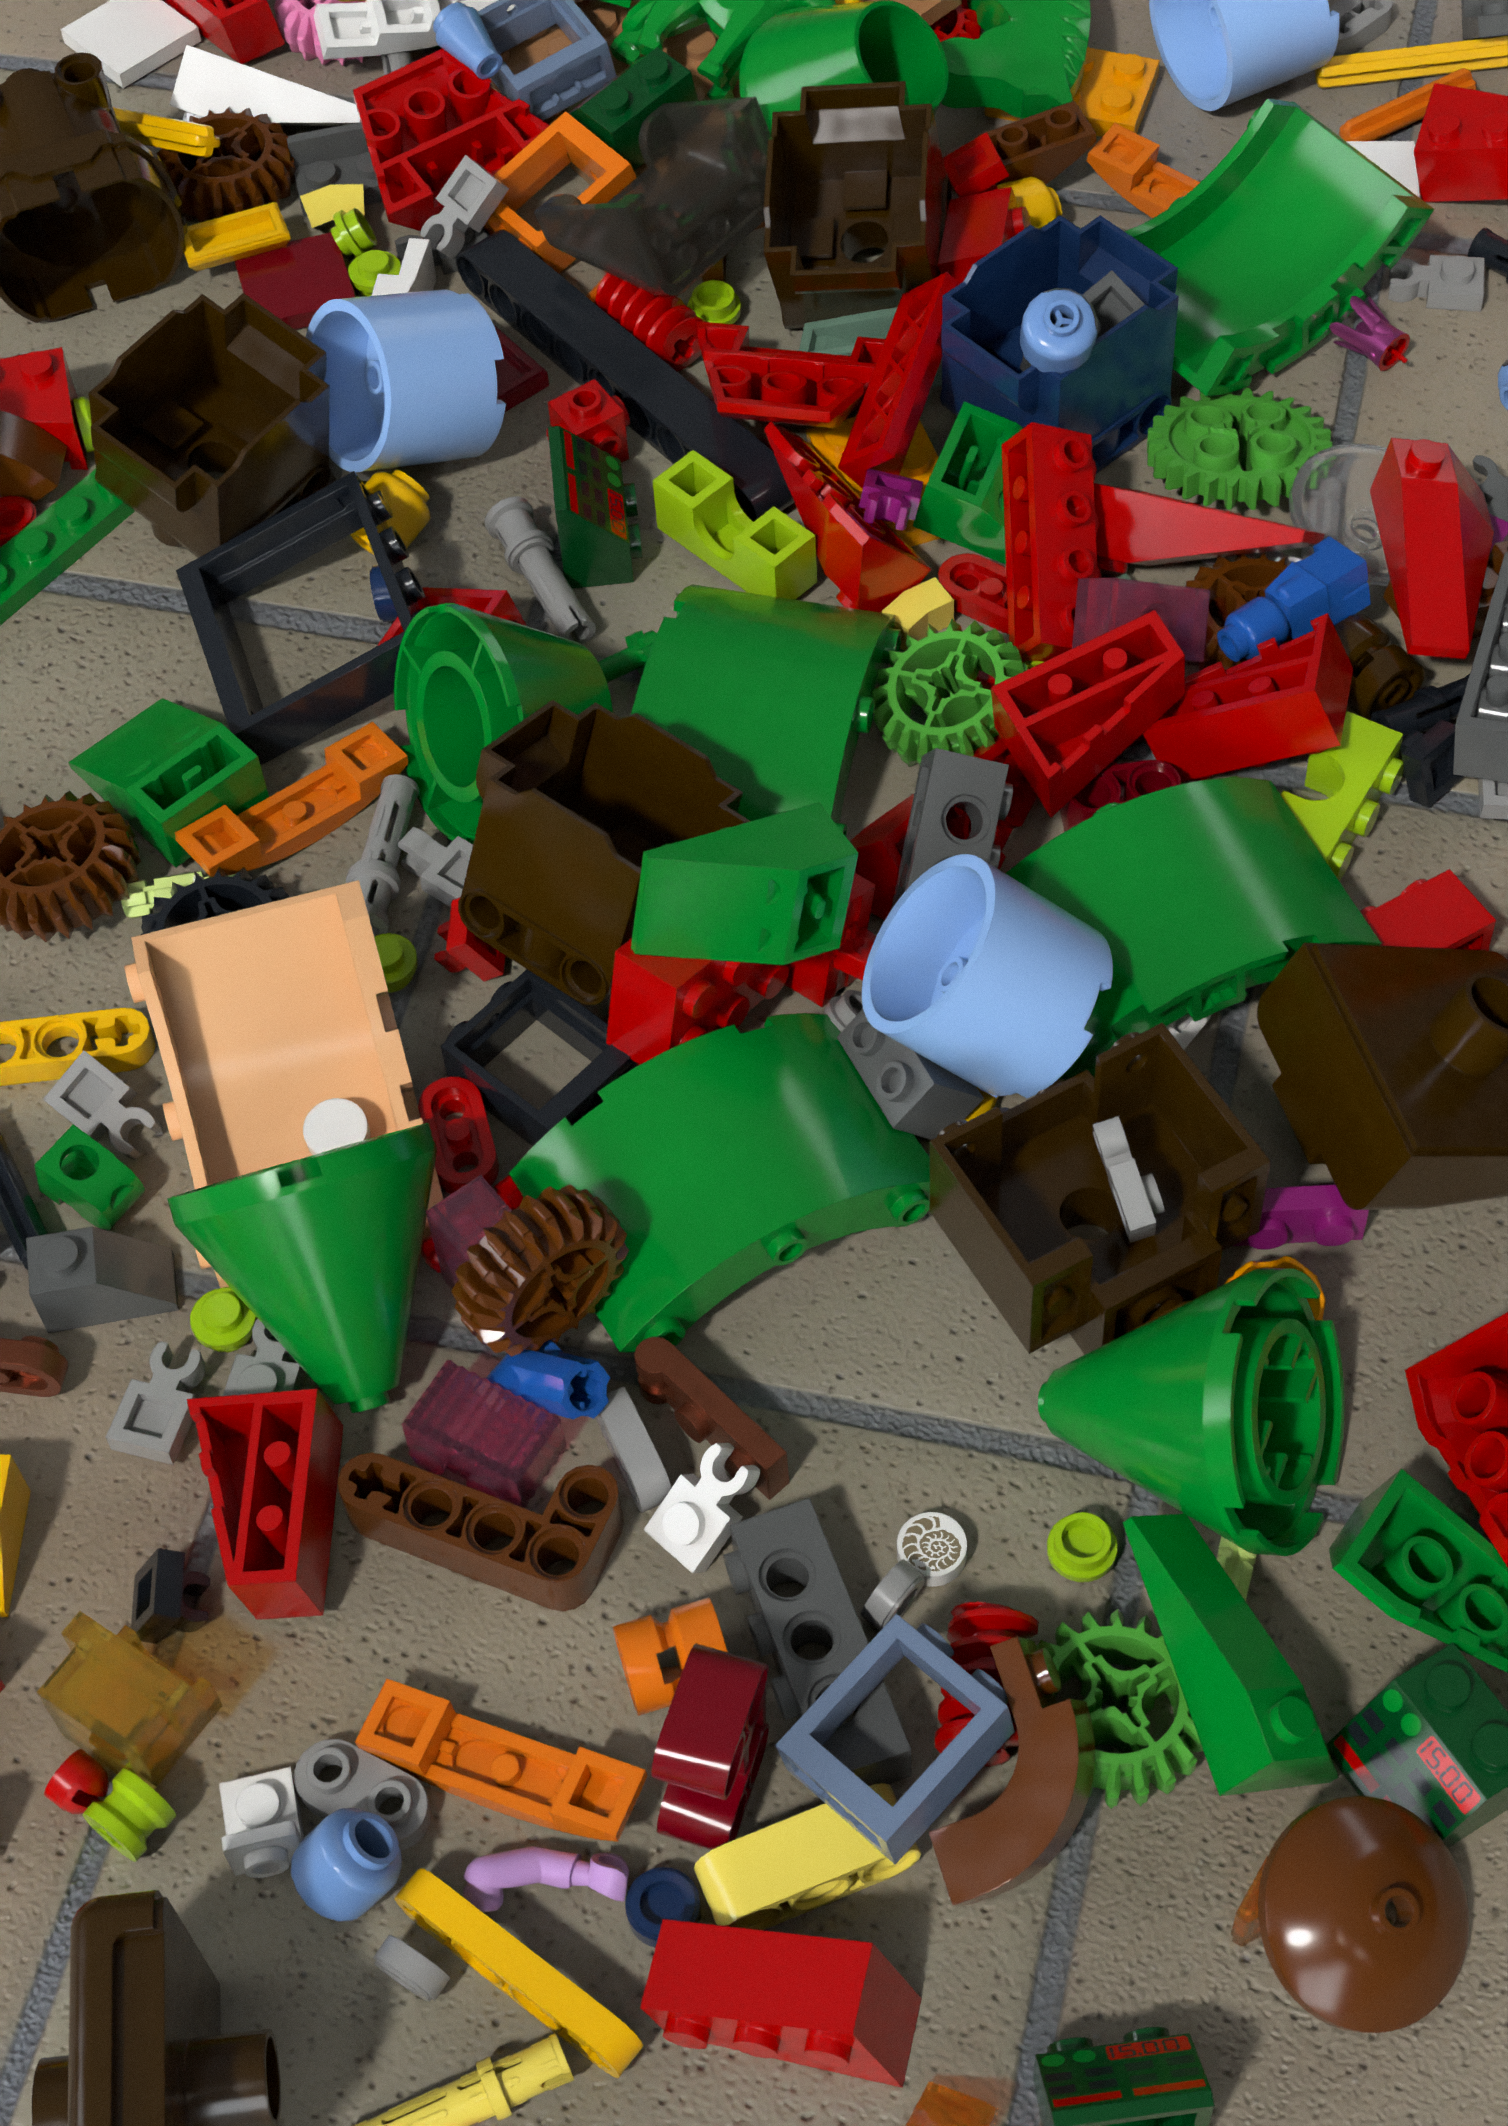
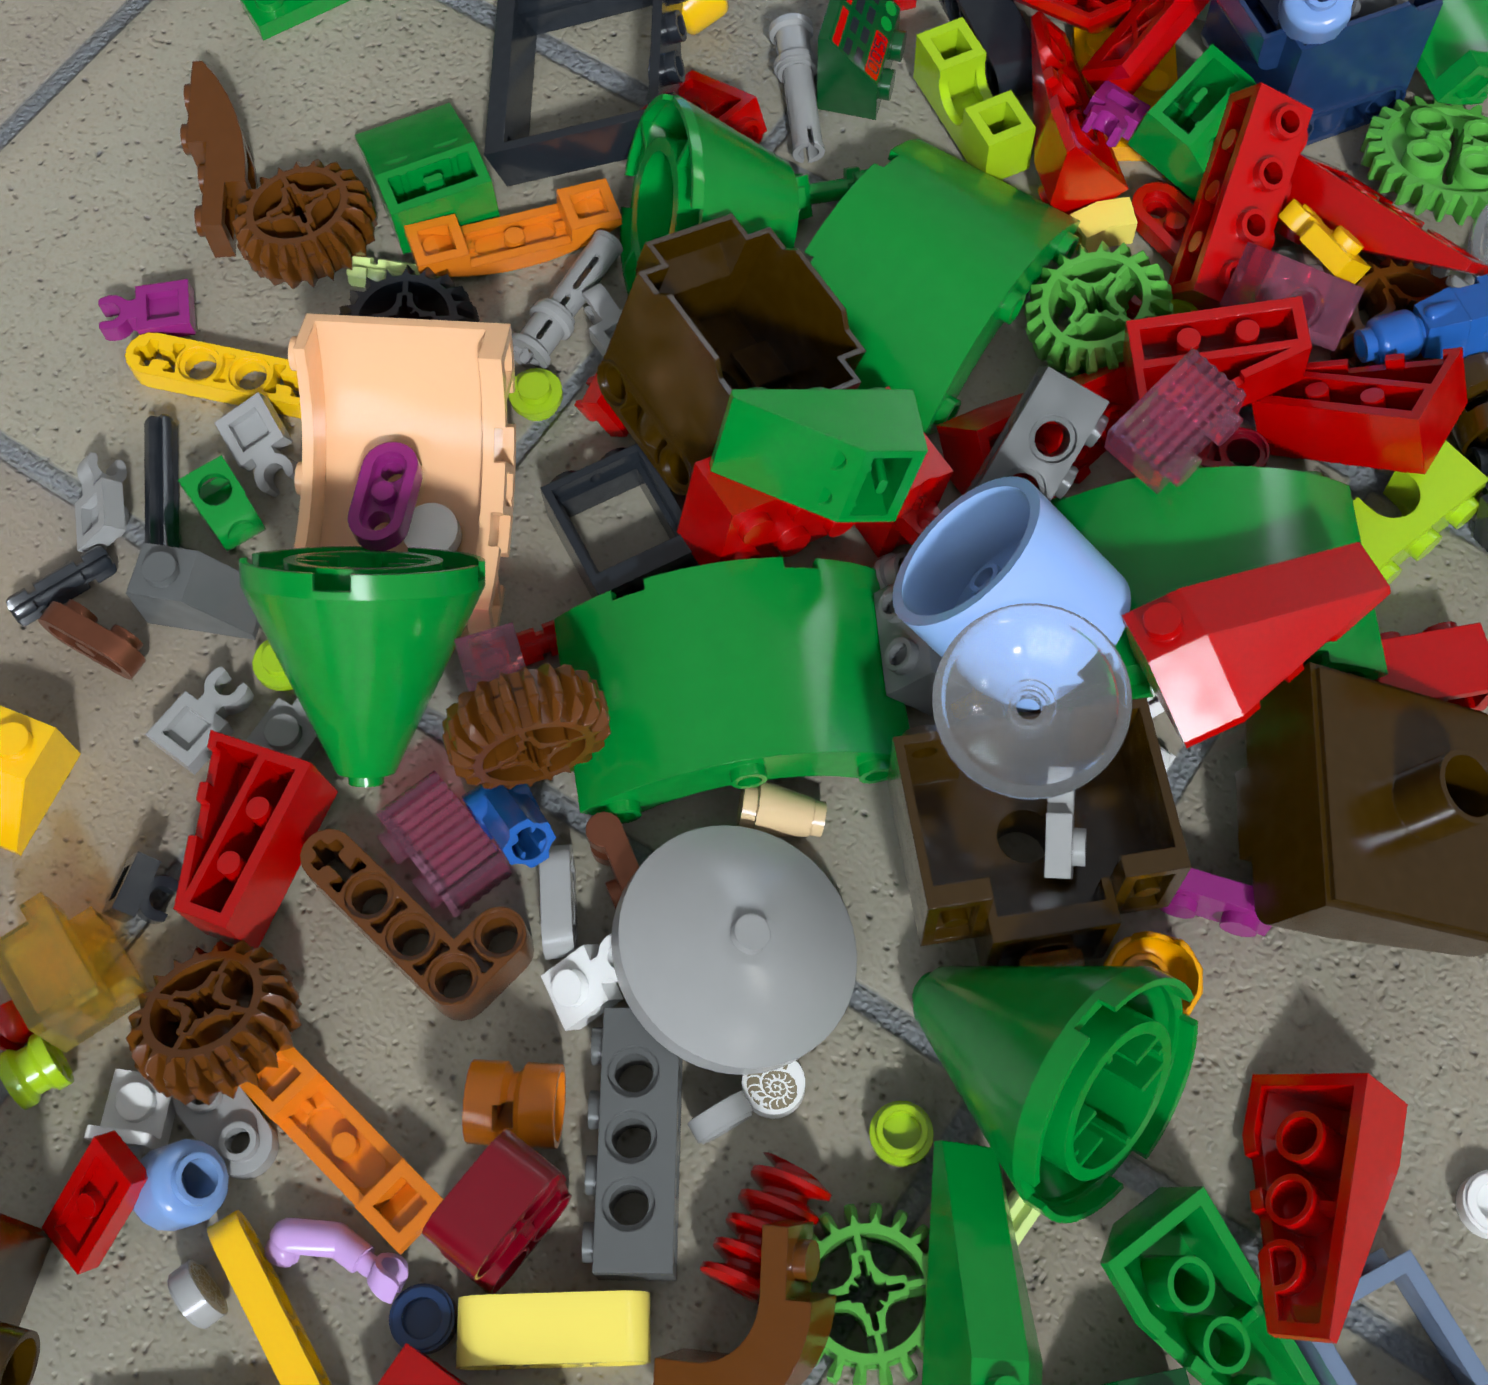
camera: 20 degrees right, 10 degrees up
(263, 1913) = (96, 1202): none -> red plate
(278, 1110) = (384, 501): none -> magenta plate
(316, 1688) = (214, 1022): none -> reddish brown gear
(462, 1139) = (530, 573): red plate -> none
(825, 1284) = (781, 811): none -> tan cone
(840, 1424) = (734, 950): none -> light grey dish
(897, 1827) = (593, 1300): sand blue window -> none
(1060, 1016) = (1042, 657): none -> clear dish
(1081, 765) = (1176, 422): none -> clear pink brick
(1166, 560) = (1335, 248): none -> yellow plate
(1222, 945) = (1238, 636): none -> red wedge

